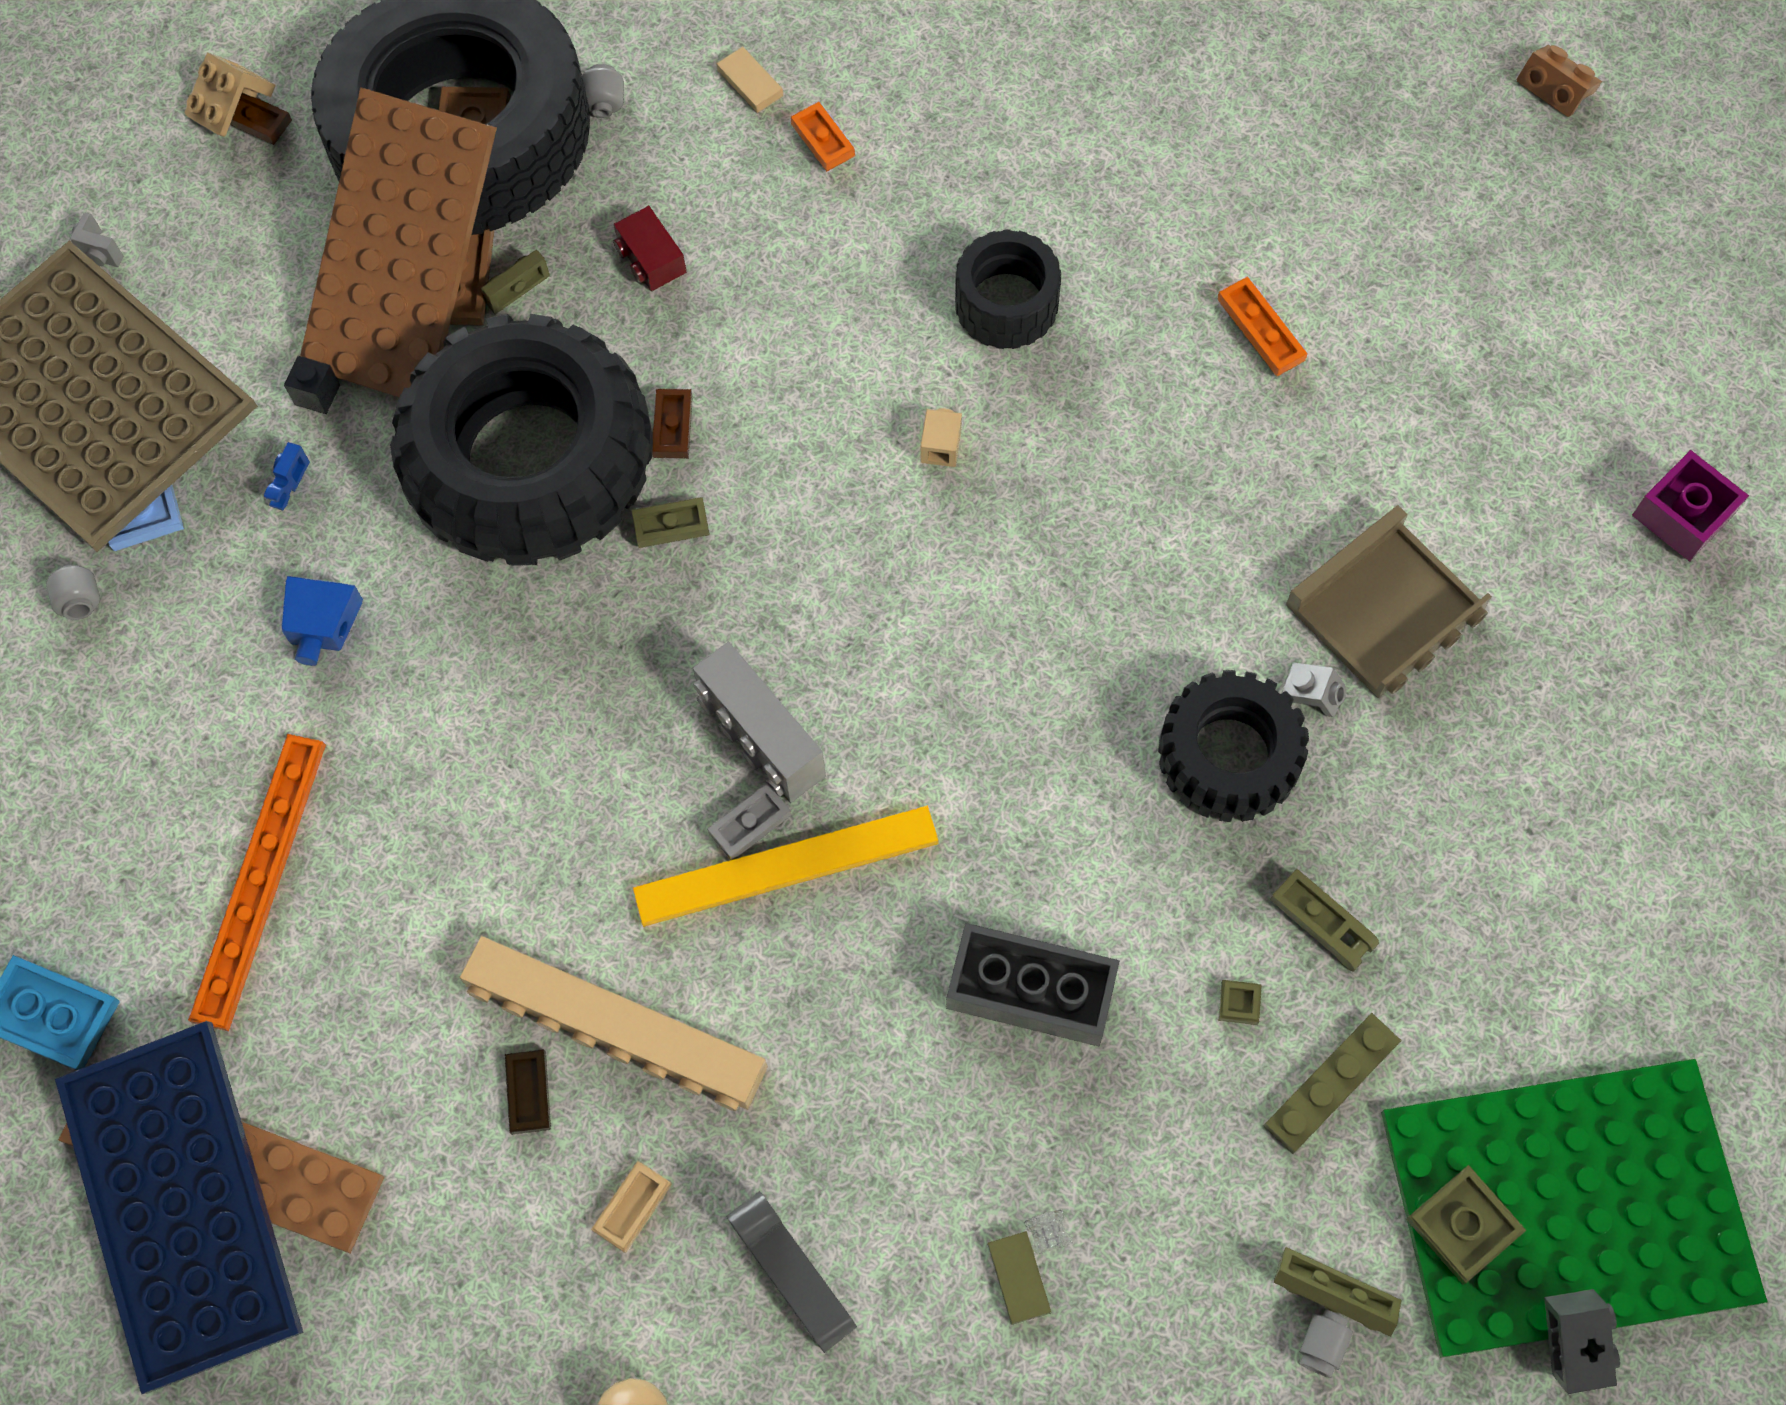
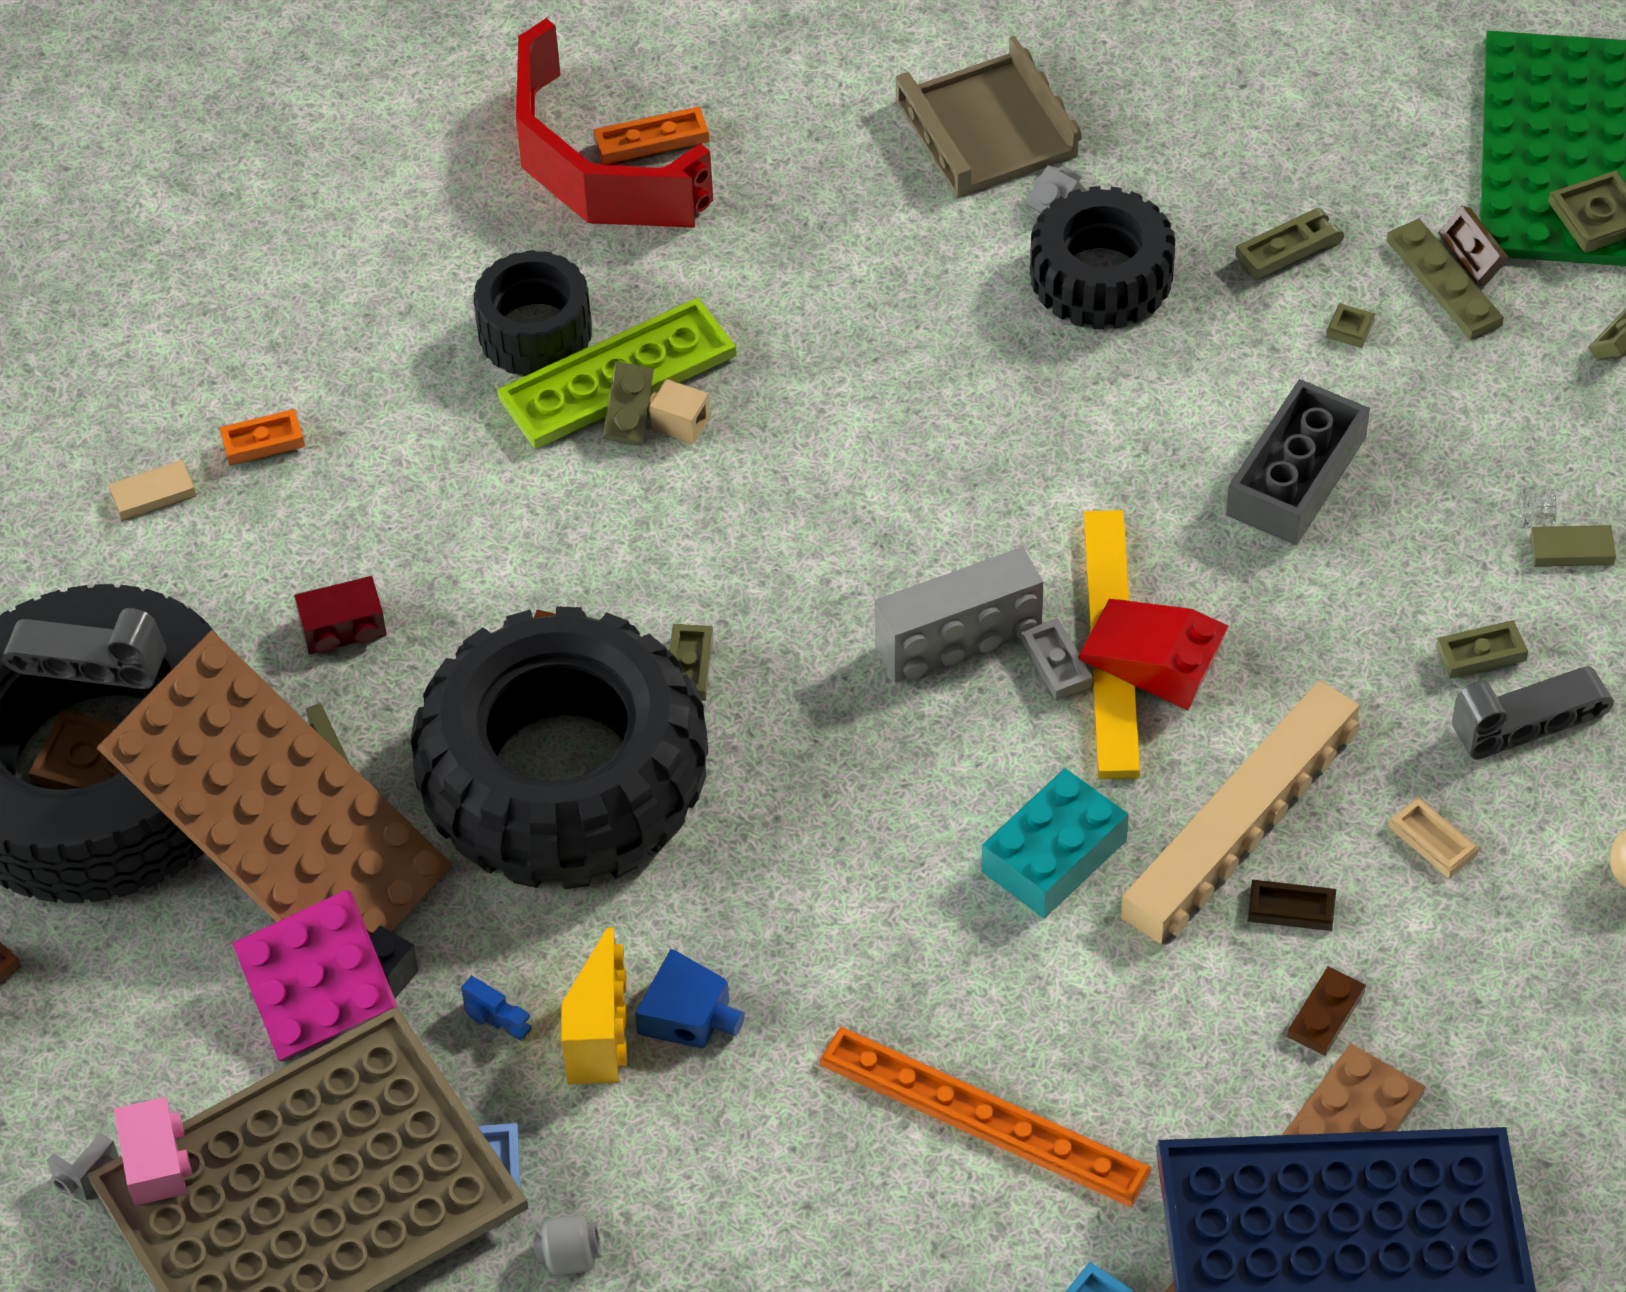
camera: 75 degrees left, 15 degrees down
(79, 270) = (151, 1151): none -> bright pink brick
(273, 546) = (596, 1017): none -> yellow slope
(274, 335) = (314, 975): none -> dark pink plate
(418, 1146) = (1326, 1011): none -> reddish brown plate
(485, 69) = (116, 656): none -> dark grey beam
(538, 867) = (1054, 842): none -> teal brick
(773, 901) = (1155, 647): none -> red slope
(860, 1210) = (1481, 649): none -> olive plate
(932, 392) = (628, 403): none -> olive plate
(974, 378) = (578, 387): none -> lime plate
(1290, 200) = (597, 191): none -> red panel
(1379, 1102) = (1473, 245): none -> reddish brown plate

